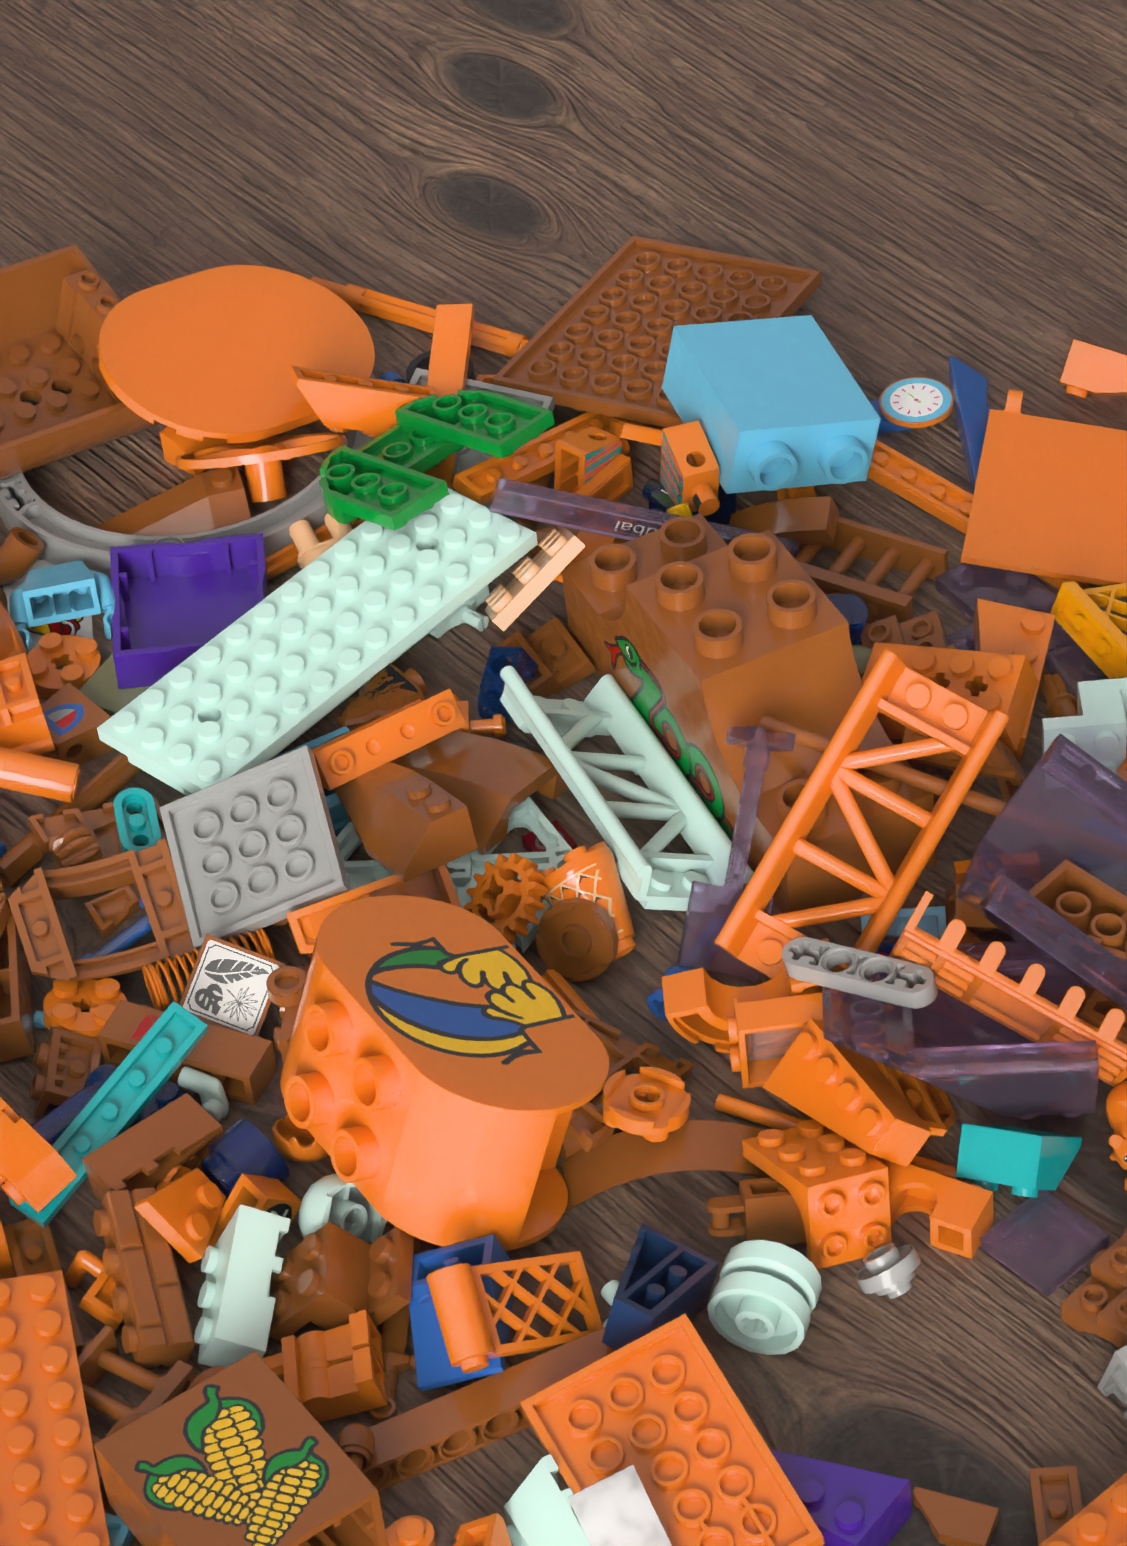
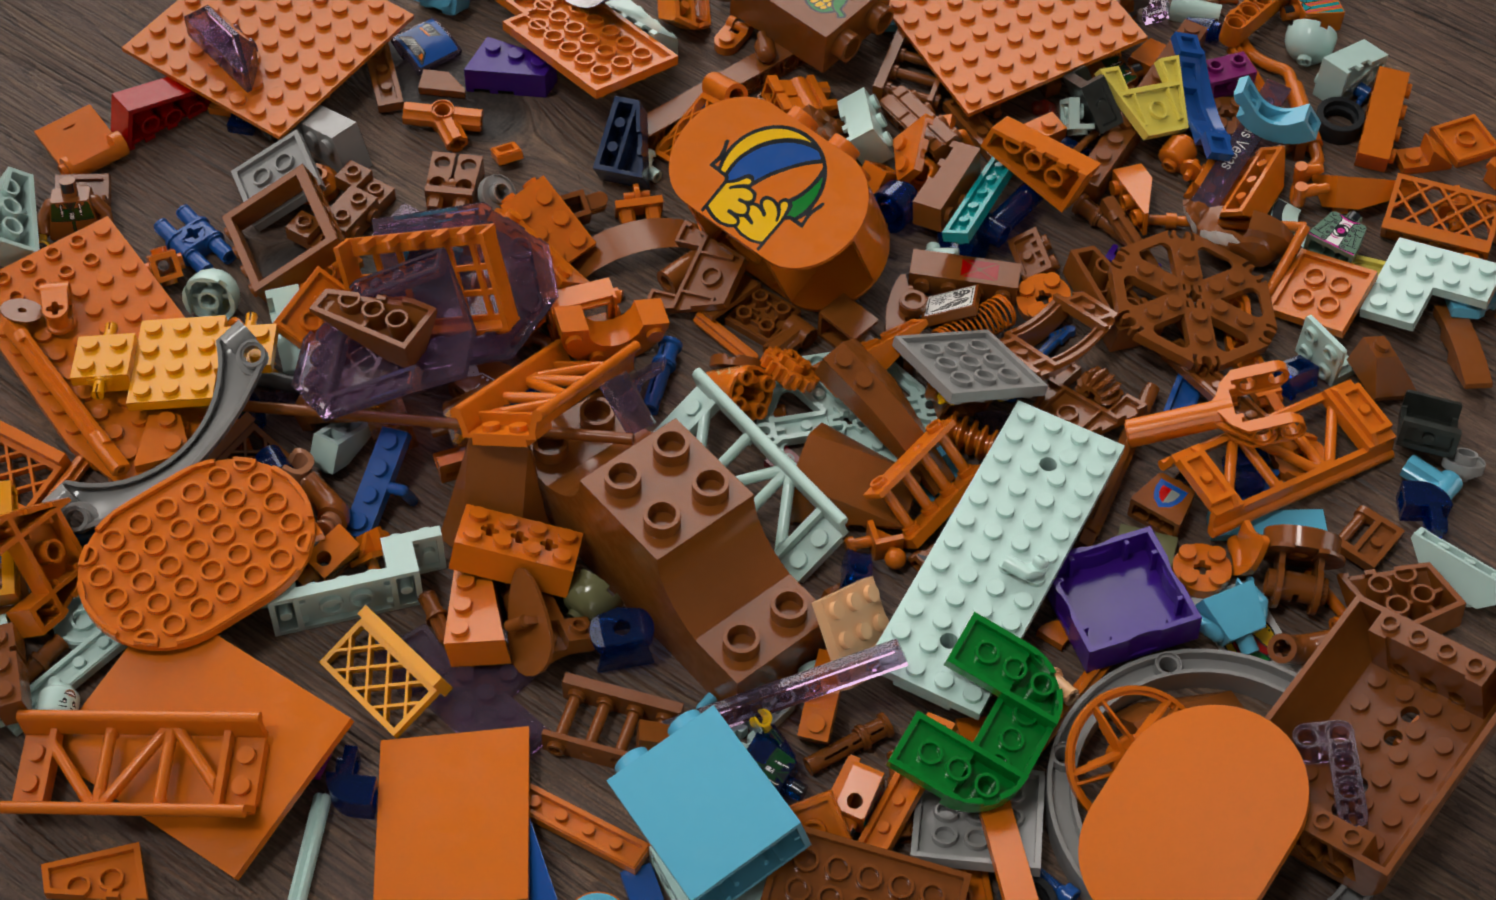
camera: 160 degrees right, 10 degrees up
(40, 394) = (1337, 755): none -> beam
(136, 828) = (1067, 405): teal plate -> none
(299, 584) = (1027, 570): none -> light aqua arm
(355, 401) = (1069, 801): orange wedge -> none
(627, 1108) = (662, 258): orange plate -> none
(671, 1218) = (638, 203): none -> orange hips
(692, 482) = (765, 748): orange torso -> none
(764, 1297) = (562, 154): light aqua wheel -> none
(858, 1356) = (506, 153): none -> orange tile
(906, 985) = (538, 290): light grey beam -> none
(944, 621) = (528, 626): none -> dark orange shield
(957, 1427) = (445, 120): none -> orange piece
(958, 1303) = (453, 183): none -> dark orange hips

